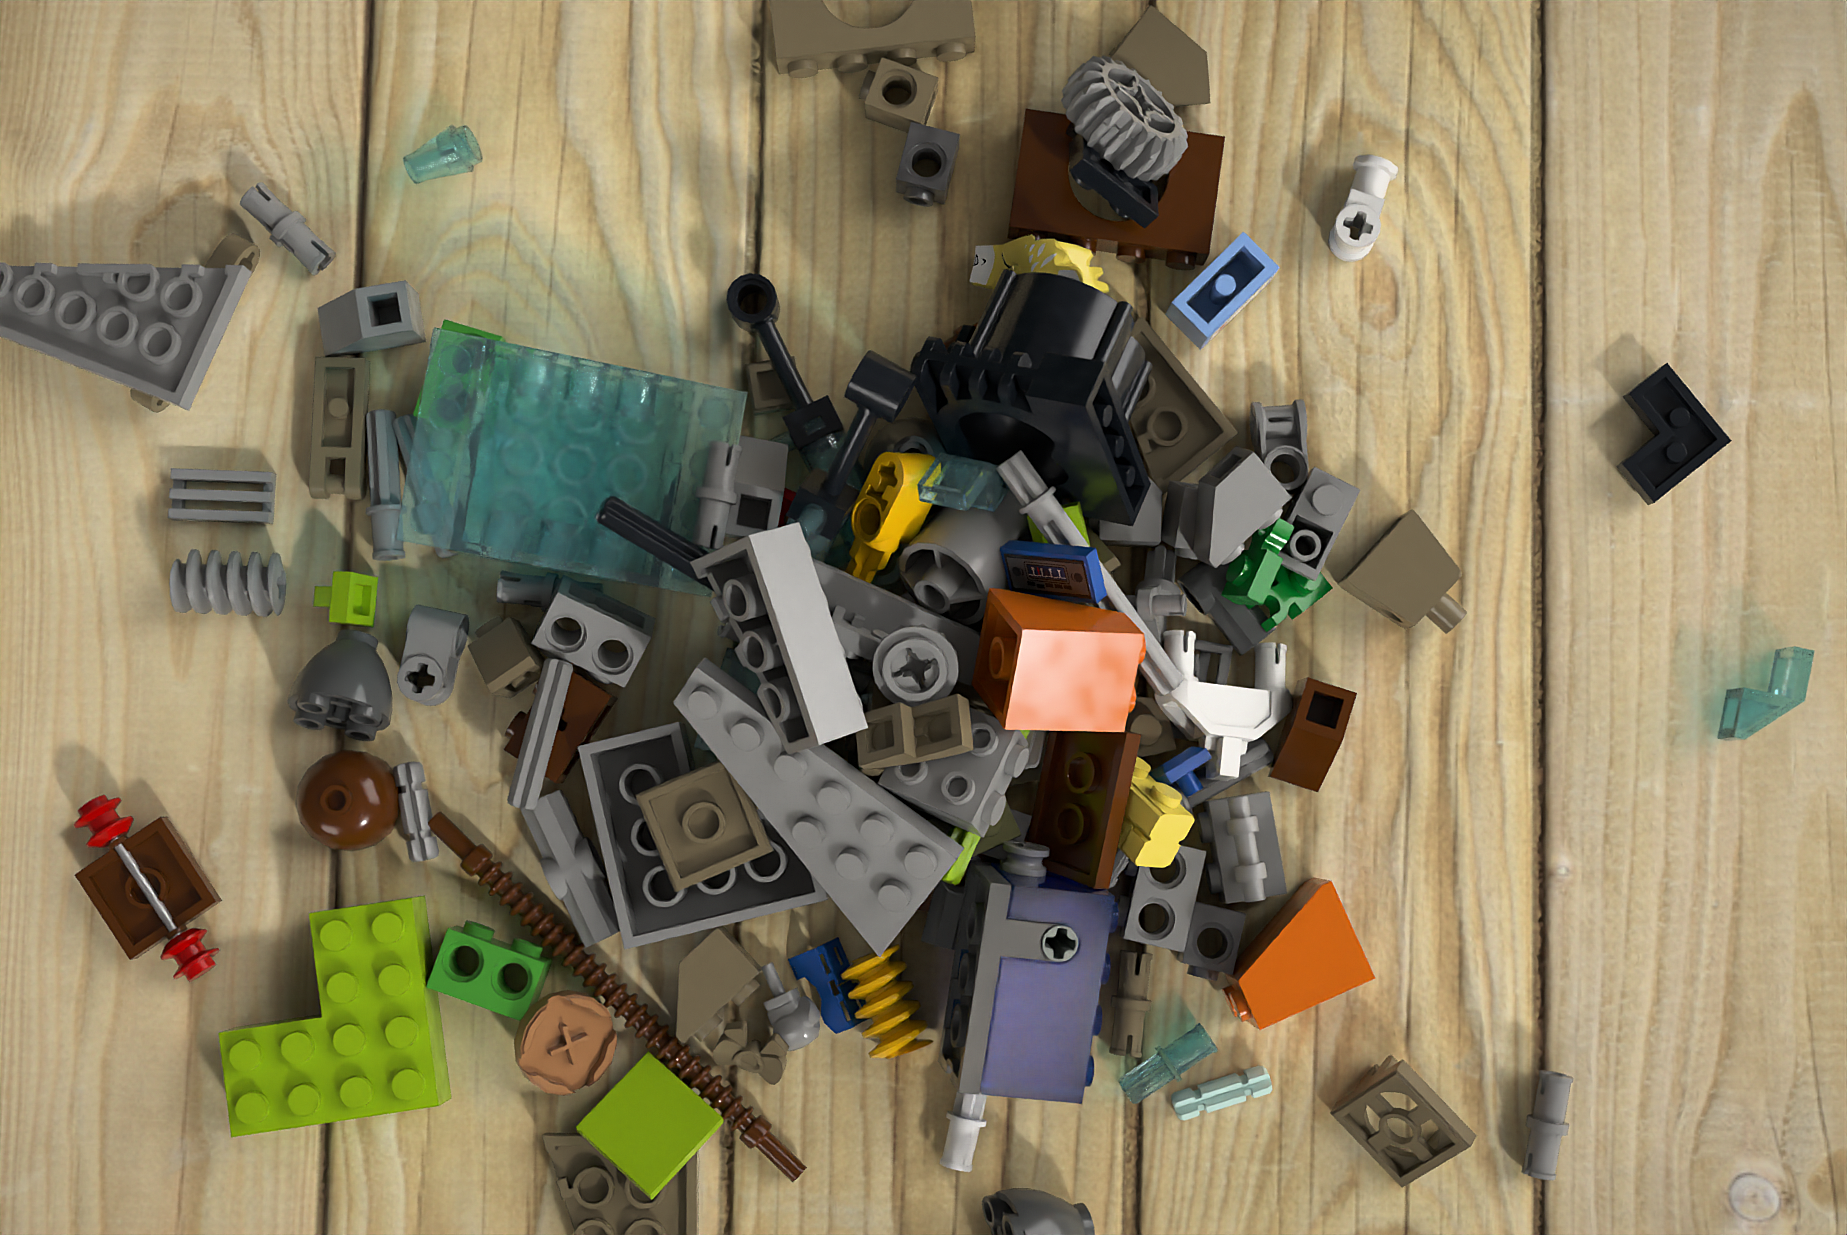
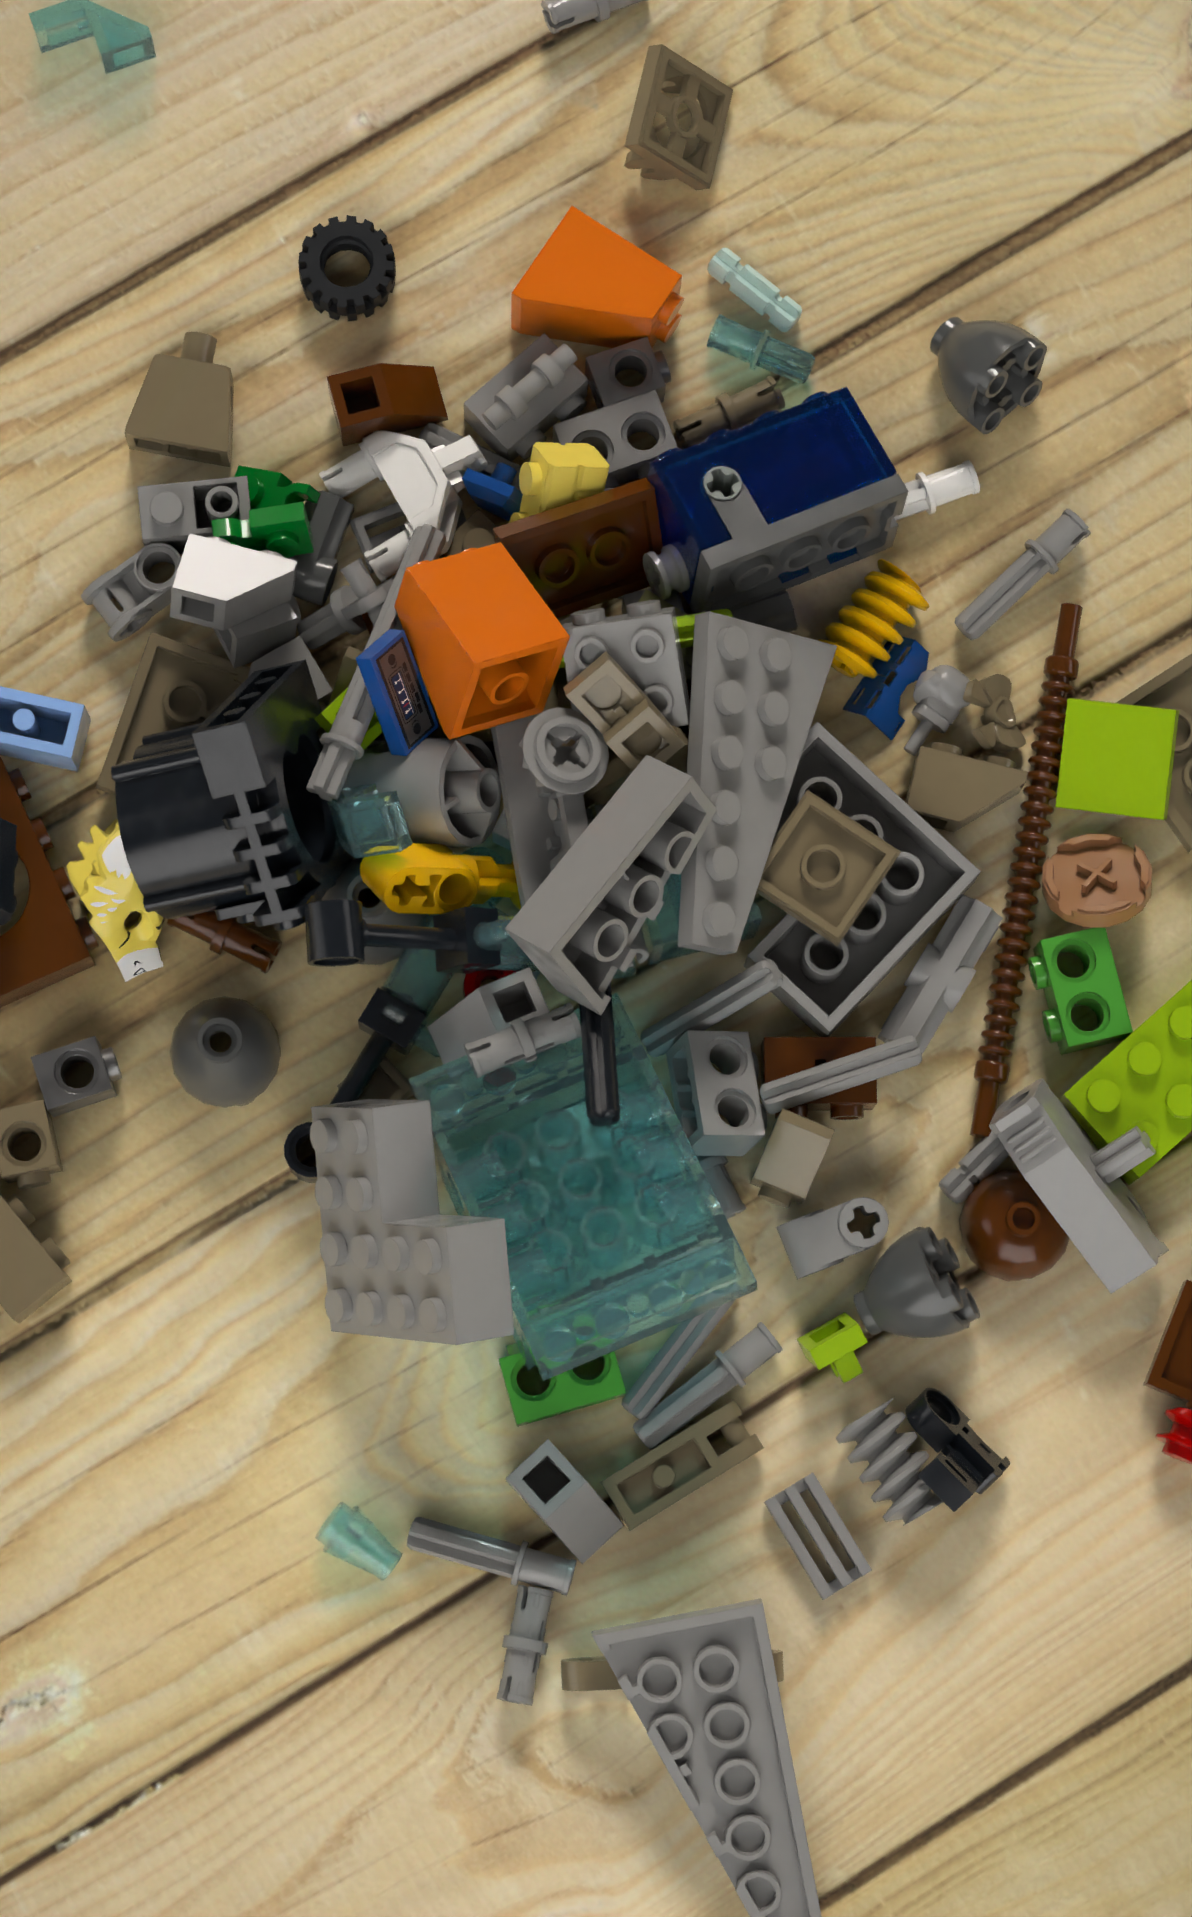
camera: 130 degrees left, 5 degrees down
(193, 643) = (968, 1463): none -> black piece
(335, 865) = (1081, 1182): none -> light grey piece
(369, 246) = (491, 1555): none -> light grey axle
(623, 297) = (384, 1244): none -> light grey brick
(660, 671) = (713, 1006): none -> light grey axle
(849, 1151) = (1037, 560): none -> light grey axle
(879, 308) = (232, 1075): none -> dark grey piece
(1474, 769) = (343, 237): none -> black tyre

